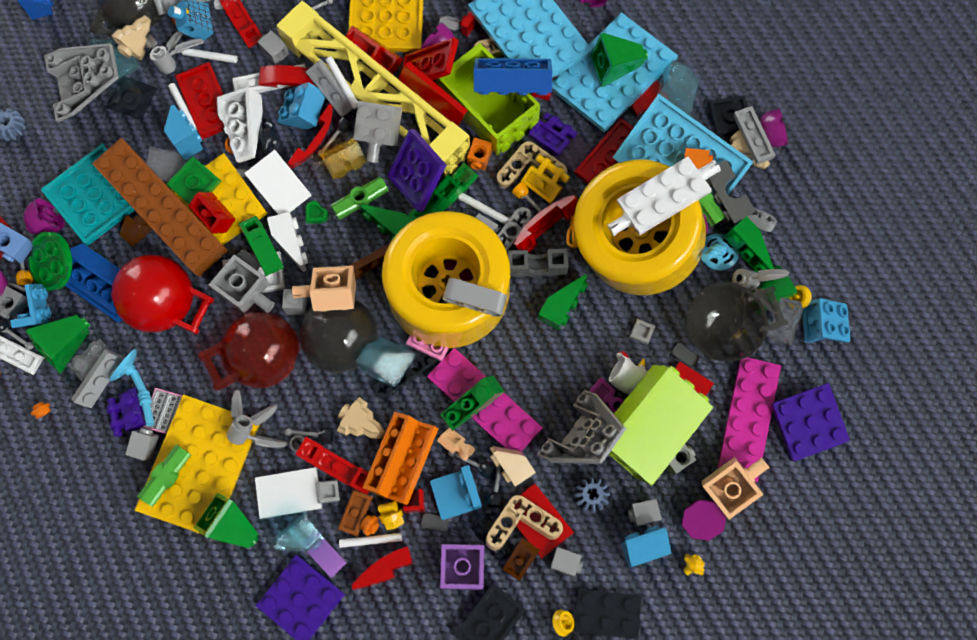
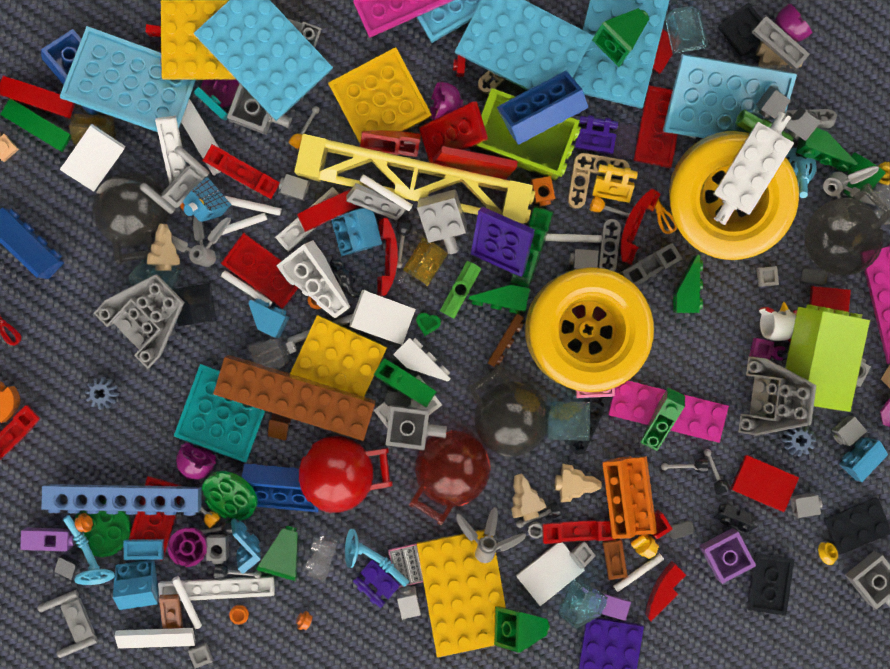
camera: 30 degrees left, 15 degrees up
(97, 378) = (337, 570): light grey plate -> none
(164, 475) = (447, 619): bright green piece -> none
(193, 179) = (309, 358): green tile -> none
(211, 212) = (346, 379): red brick -> none
(233, 48) = (254, 206): none -> white bar
(293, 306) = (460, 414): light grey brick -> none
(305, 411) = (526, 500): none -> tan rock
(329, 288) = (494, 392): light nougat brick -> none
(369, 525) = (632, 562): orange plate -> none
(451, 22) = (443, 73): light grey tile -> none
(455, 442) = (663, 459): light nougat plate -> none
(456, 493) = (688, 499): dark azure bracket -> none
(474, 297) = (635, 344): light grey beam -> none
(514, 464) = (723, 450): tan slope -> none
(516, 516) = (748, 492): tan beam -> none
(521, 559) = (769, 522): reddish brown slope -> none
(699, 157) = (746, 99): orange brick -> none

